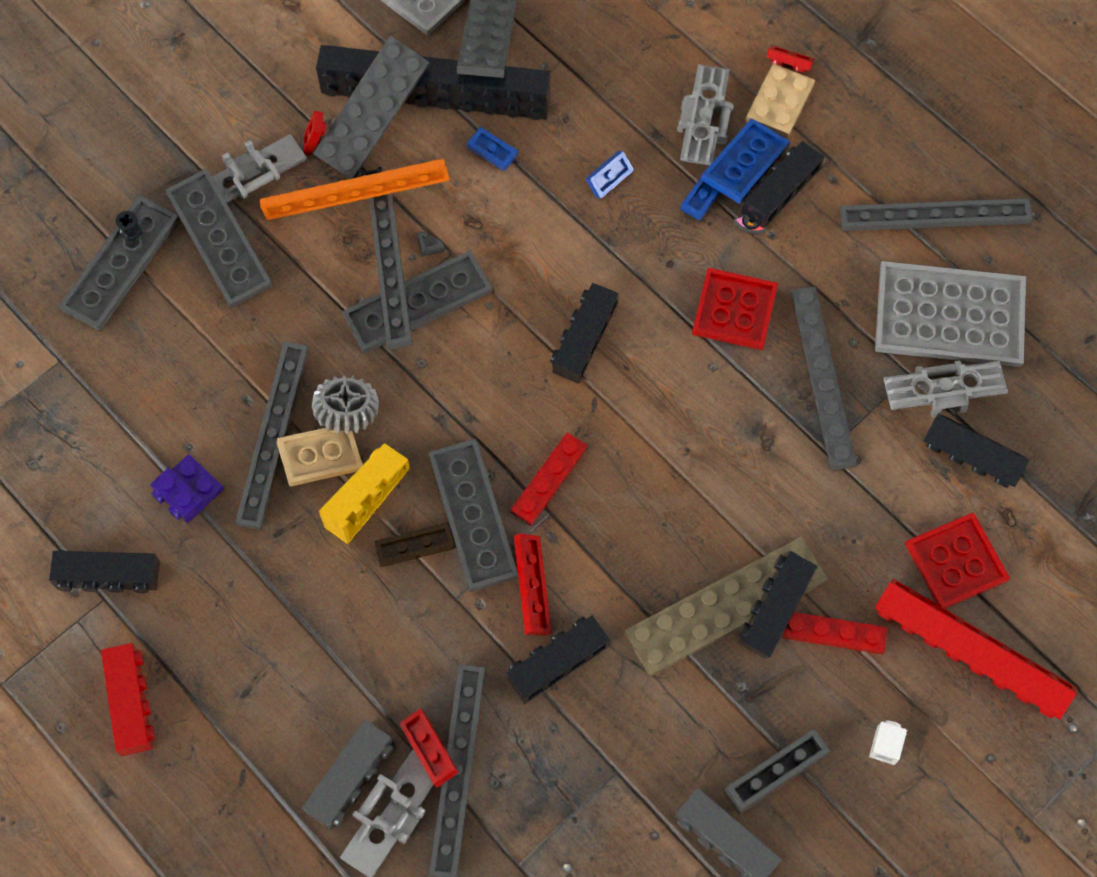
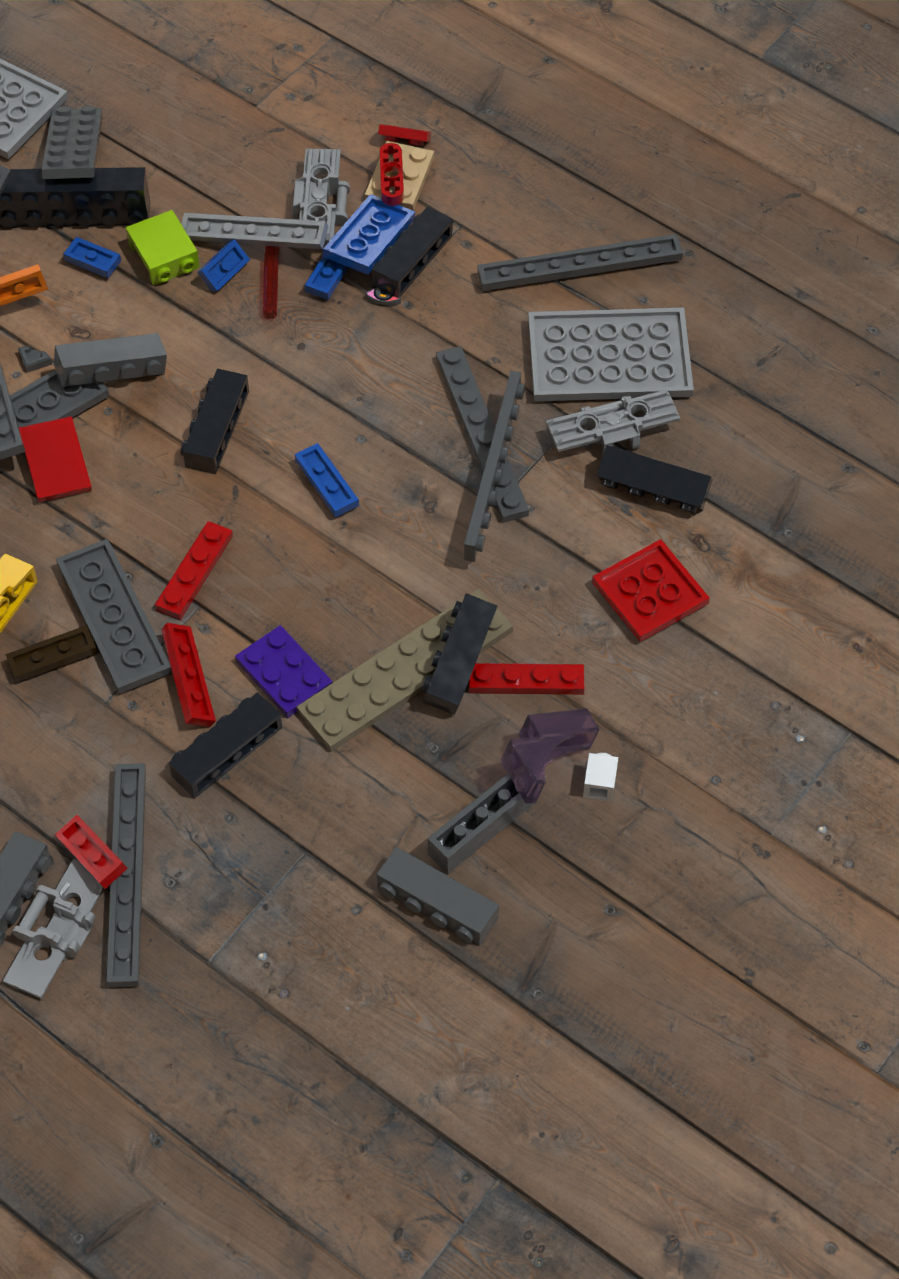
camera: 10 degrees left, 10 degrees down
(438, 351) = (55, 459): none -> red tile
(497, 260) = (109, 359): none -> dark grey brick
(557, 148) = (163, 247): none -> lime panel
(617, 591) = (282, 670): none -> dark purple plate
(641, 144) = (255, 230): none -> light grey plate
(651, 188) = (270, 286): none -> clear red axle
(677, 406) = (326, 480): none -> blue plate
(735, 308) = (376, 378): red plate -> none
(768, 109) = (387, 182): none -> red beam
(829, 428) = (492, 473): none -> dark grey plate
(842, 702) = (543, 740): none -> clear purple arch
(977, 649) = (681, 669): red brick -> none

